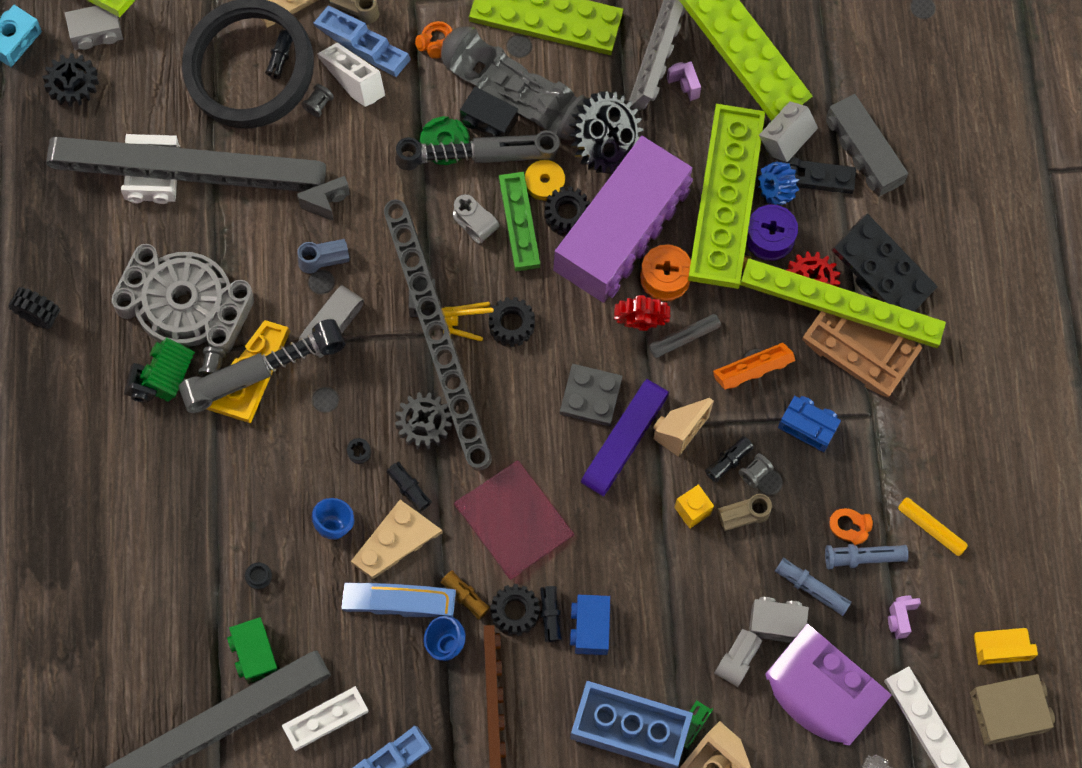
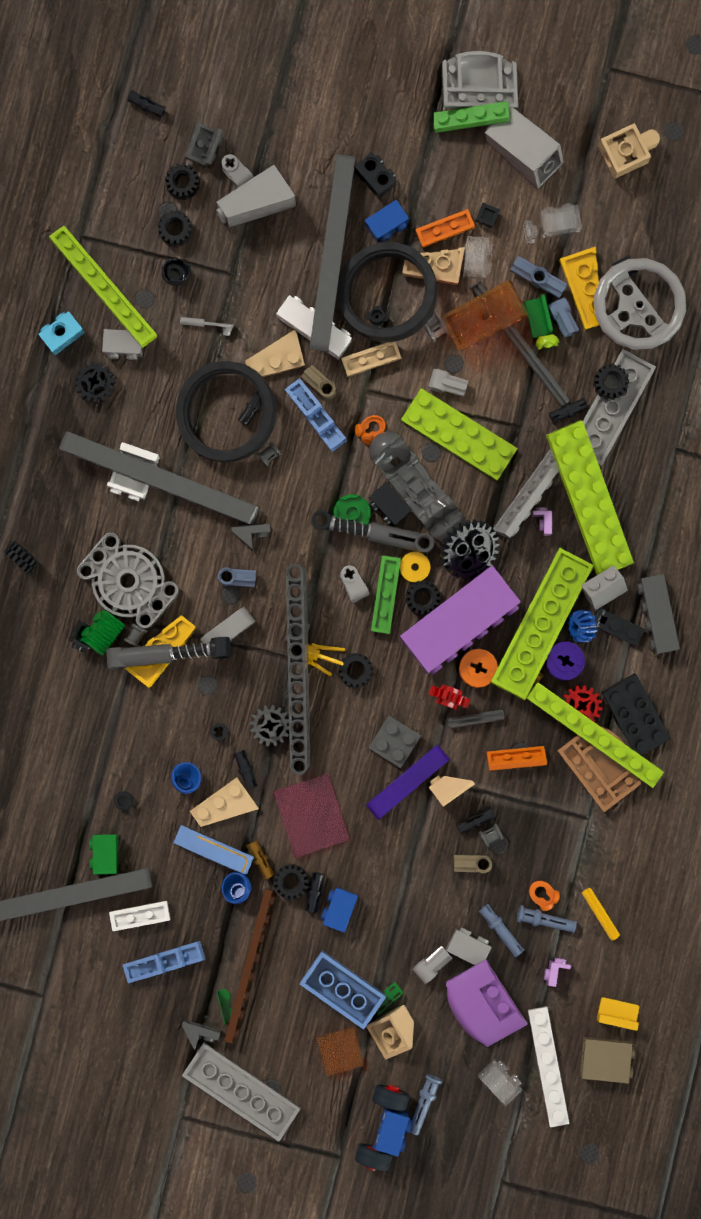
camera: 20 degrees right, 15 degrees up
(354, 74) = (300, 440): white slope -> none
(694, 506) = (438, 848): yellow brick -> none
(809, 423) = (540, 813): blue brick -> none

